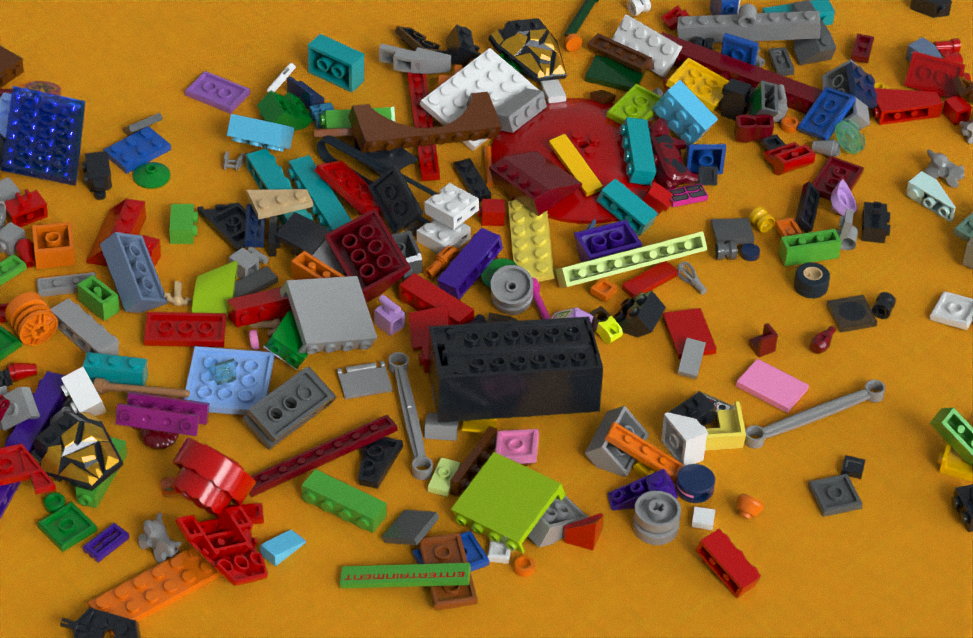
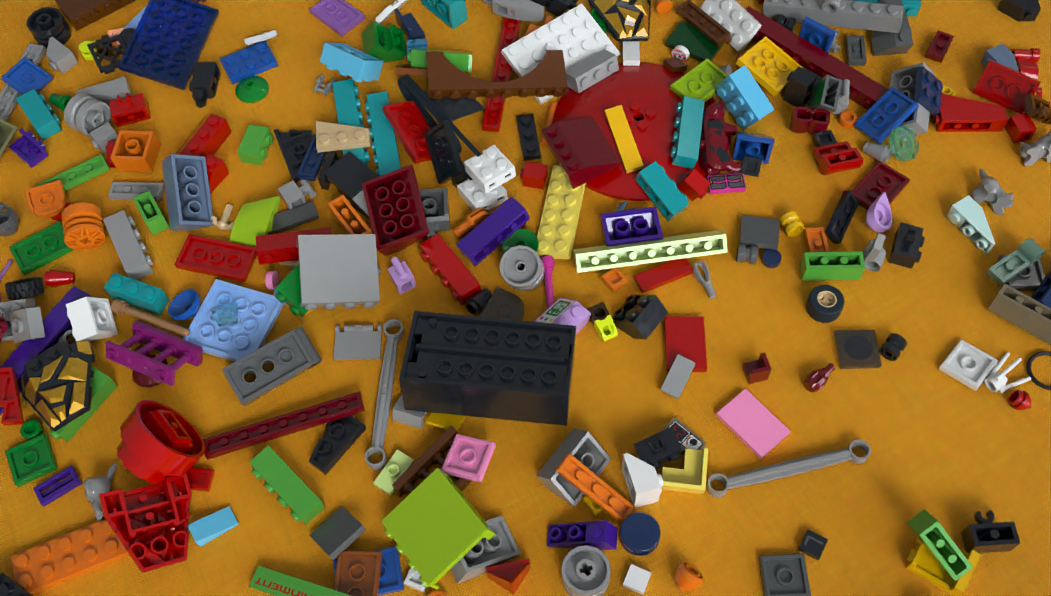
camera: 20 degrees right, 15 degrees up
(173, 372) = (184, 305): none -> blue piece
(422, 320) = (434, 295): red tile -> none
(605, 83) = (680, 52): none -> white tile

